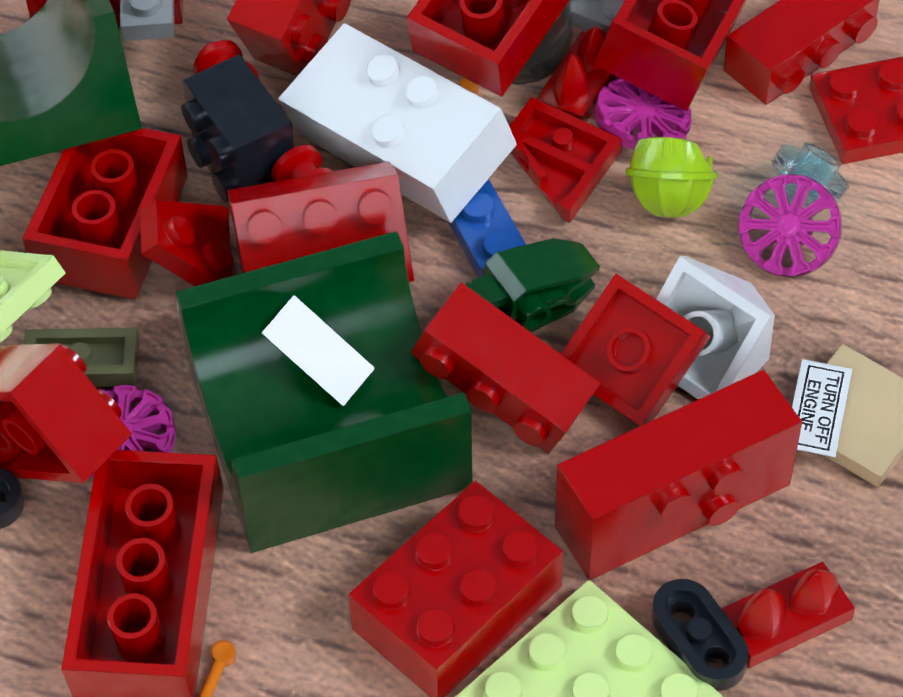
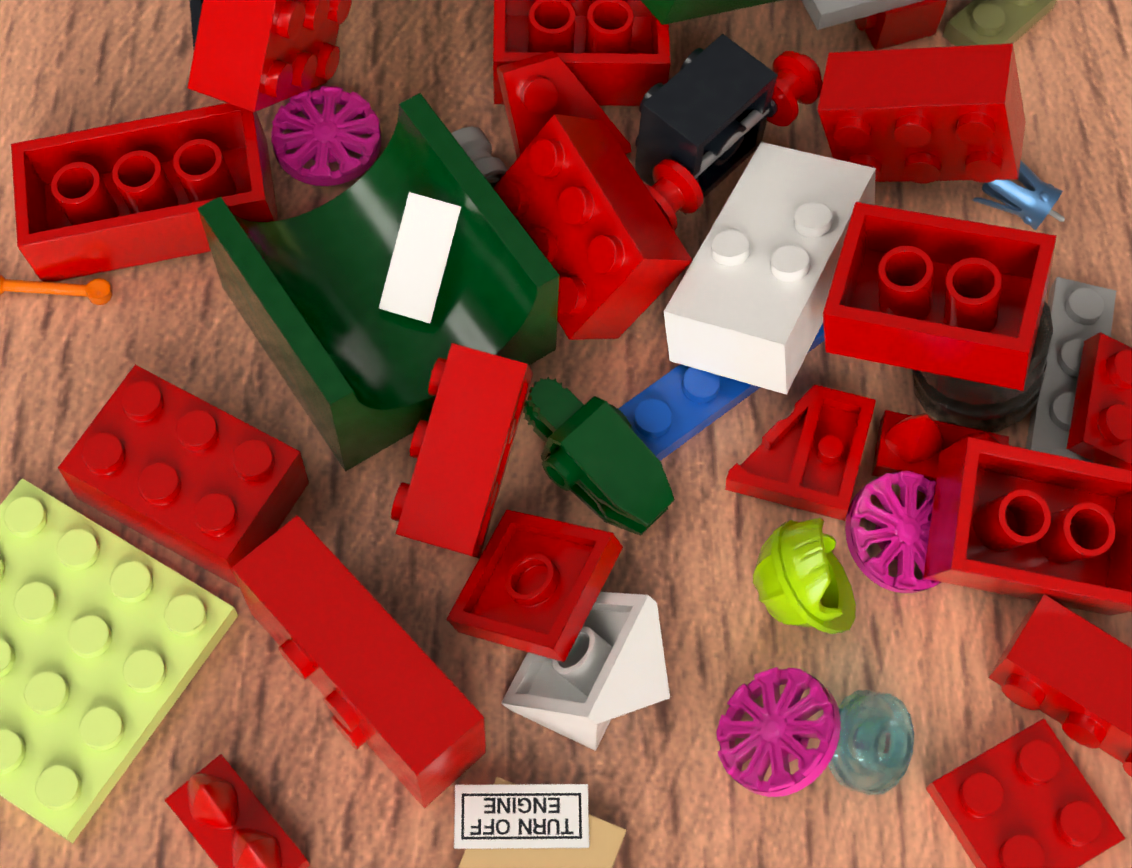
camera: 70 degrees right, 10 degrees up
(107, 352) = (400, 67): olive plate -> none
(704, 636) = (181, 735): black plate -> none

